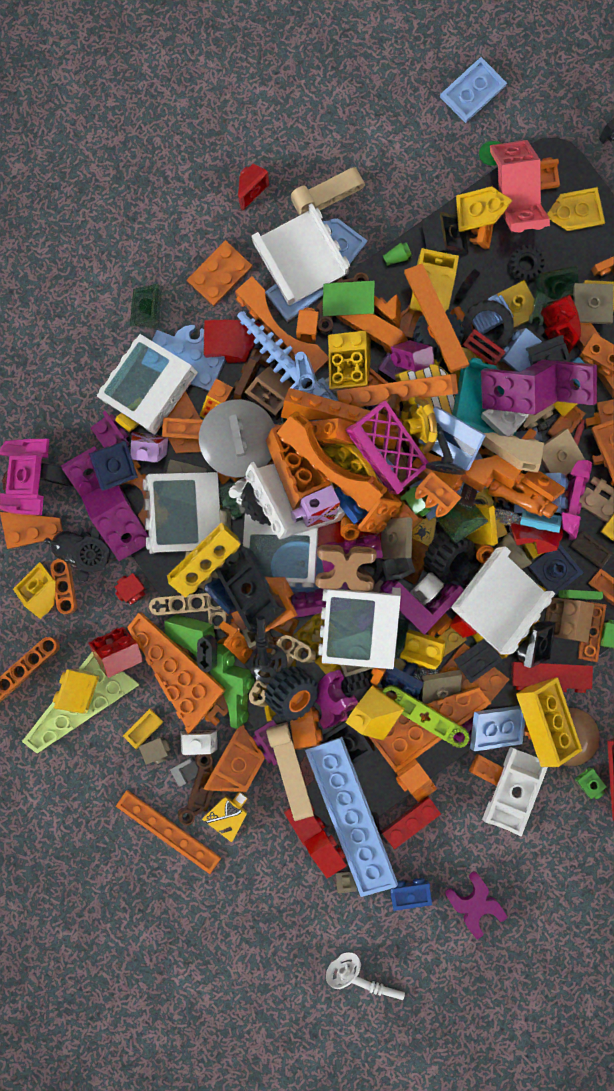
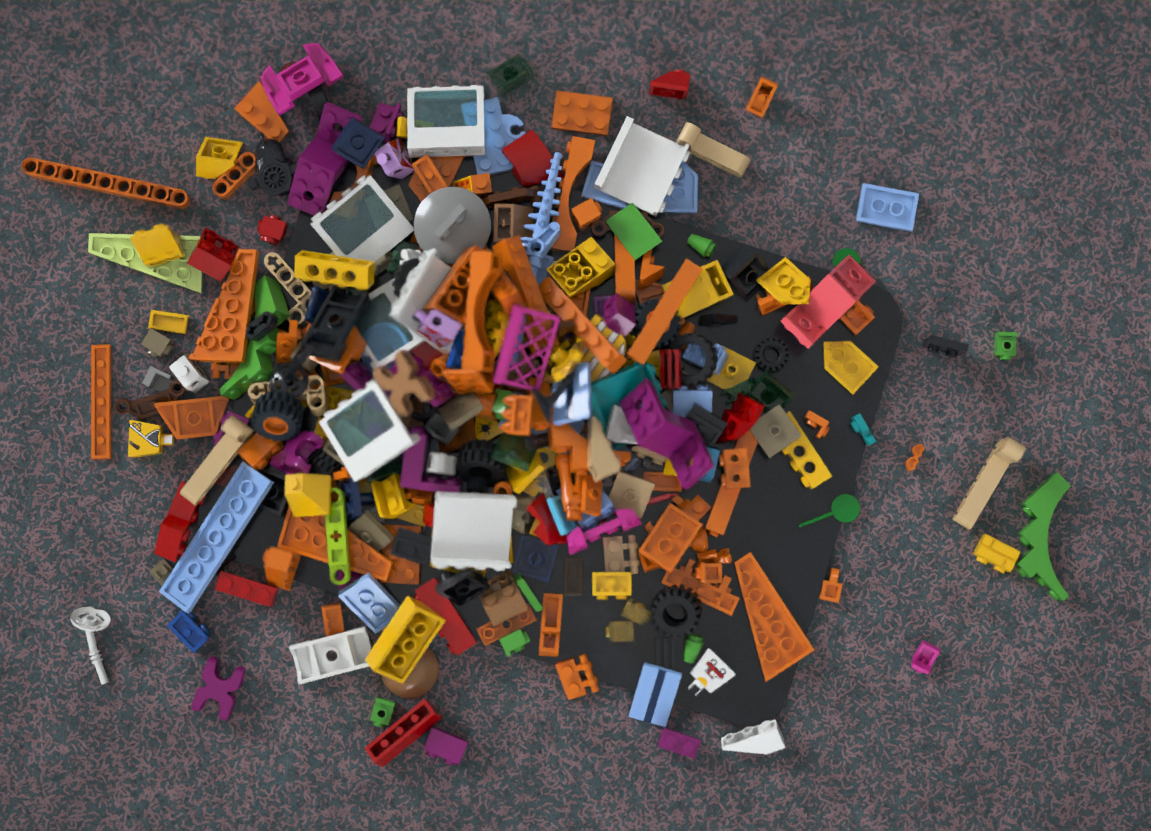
camera: 45 degrees right, 0 degrees up
(312, 120) = (762, 96): none -> orange slope

